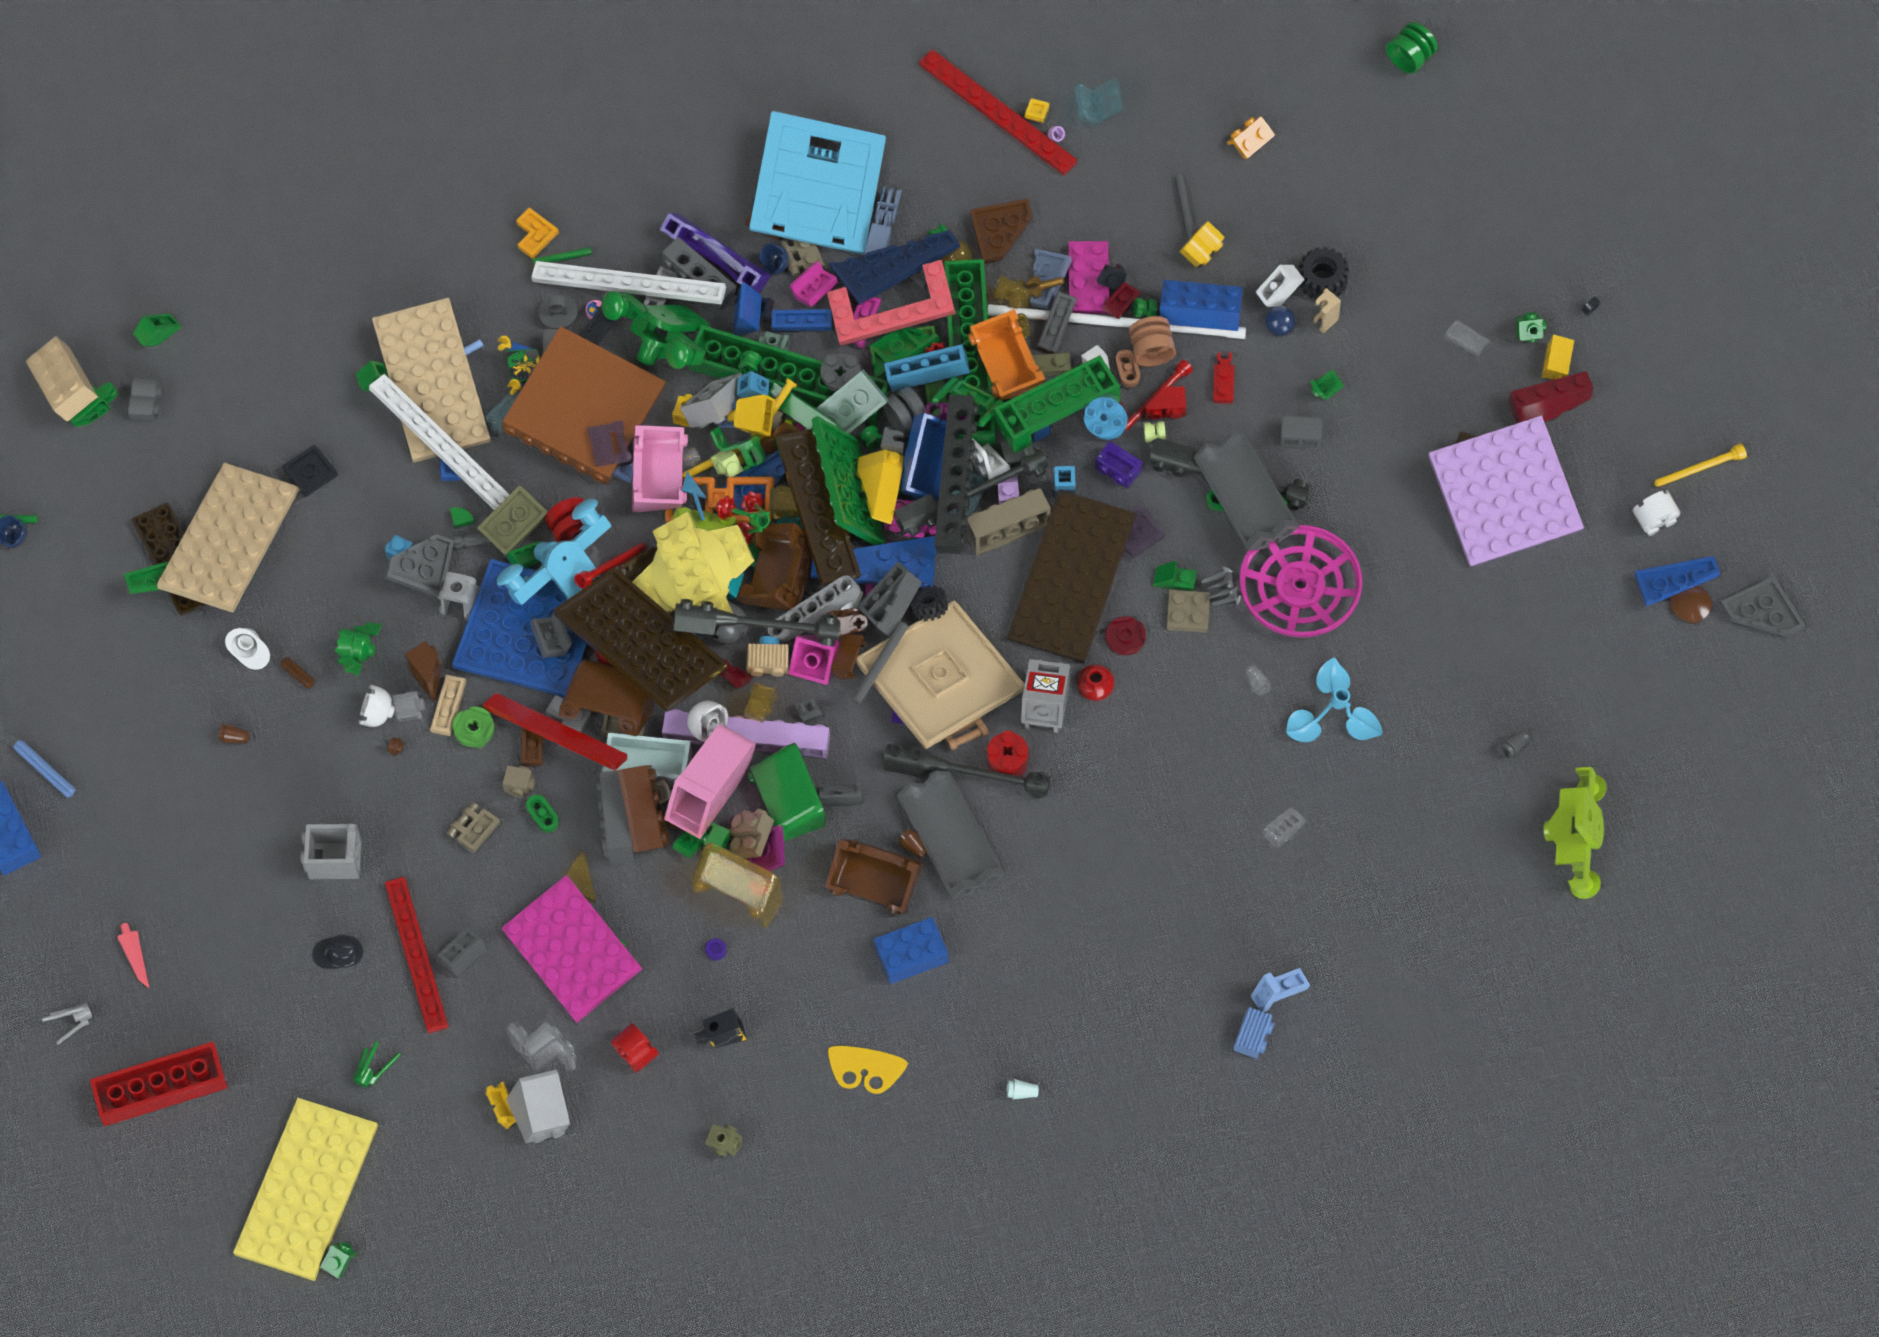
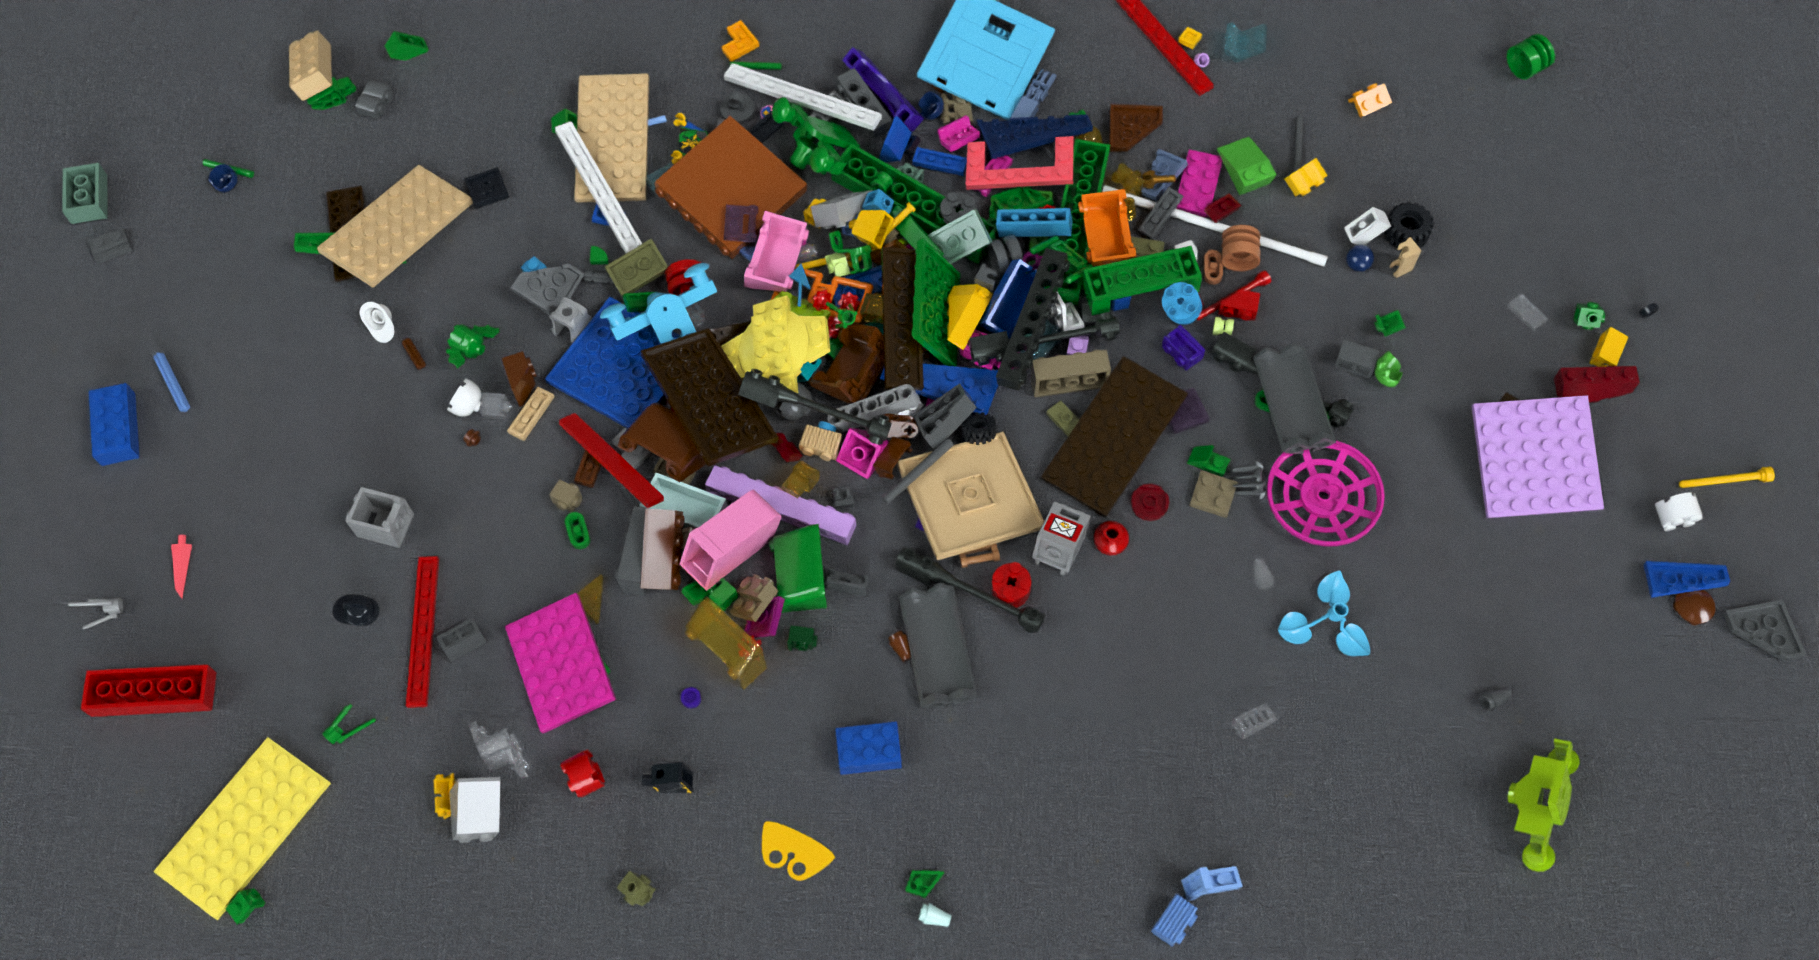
camera: 15 degrees right, 0 degrees up
(233, 734) = (336, 391): reddish brown cone -> none
(473, 738) = (548, 447): bright green plate -> none
(477, 831) = (515, 531): dark tan plate -> none
(551, 636) = (635, 376): dark grey bracket -> none
(585, 578) = (678, 331): red piece -> none
(705, 718) = (744, 480): white cylinder -> none
(811, 862) = (802, 638): none -> dark green brick
(871, 437) = (969, 271): green wheel -> none
(873, 874) = (855, 665): reddish brown windscreen -> none
(1001, 1062) = (923, 882): none -> green piece
(1013, 570) = (1063, 417): none -> olive plate
(1064, 479) = (1130, 347): dark azure brick -> none
(1112, 276) = (1219, 185): black bracket -> none
(1135, 245) = (1246, 165): none -> bright green slope
(1144, 307) = (1241, 218): green wheel -> none
(1201, 305) = (1293, 227): blue brick -> none
(1223, 380) = (1296, 297): red plate -> none
(1336, 436) = (1387, 370): none -> bright green hair

